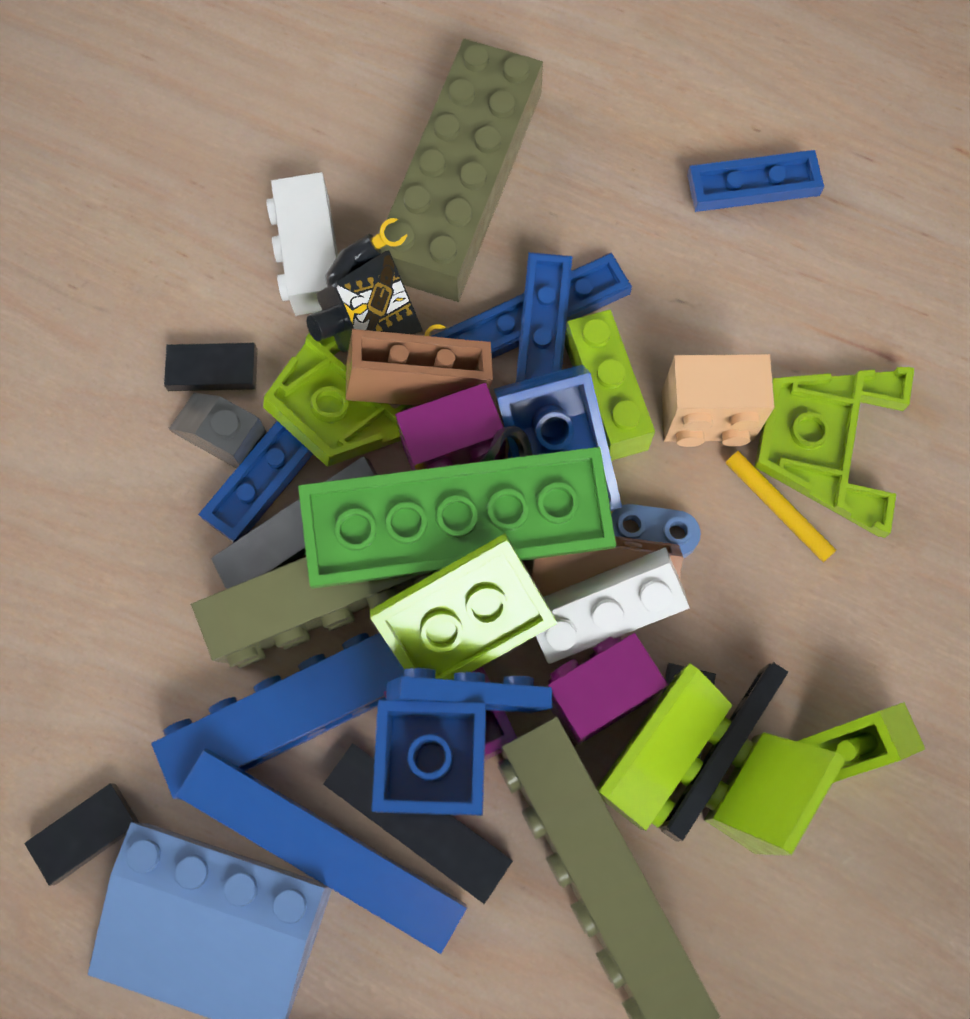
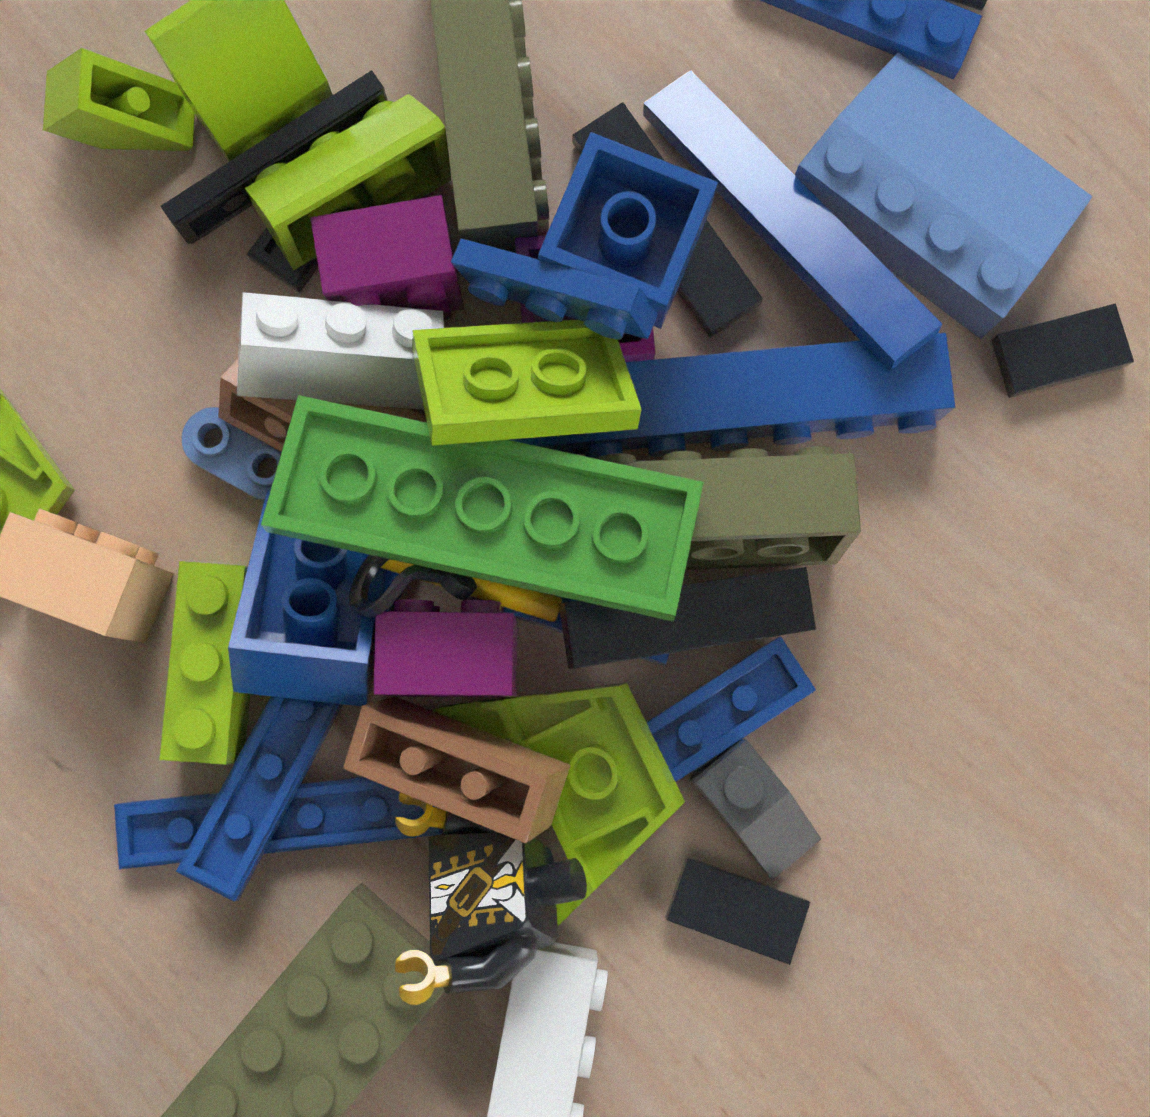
camera: 165 degrees left, 10 degrees up
(781, 506) = (68, 427): yellow bar -> none

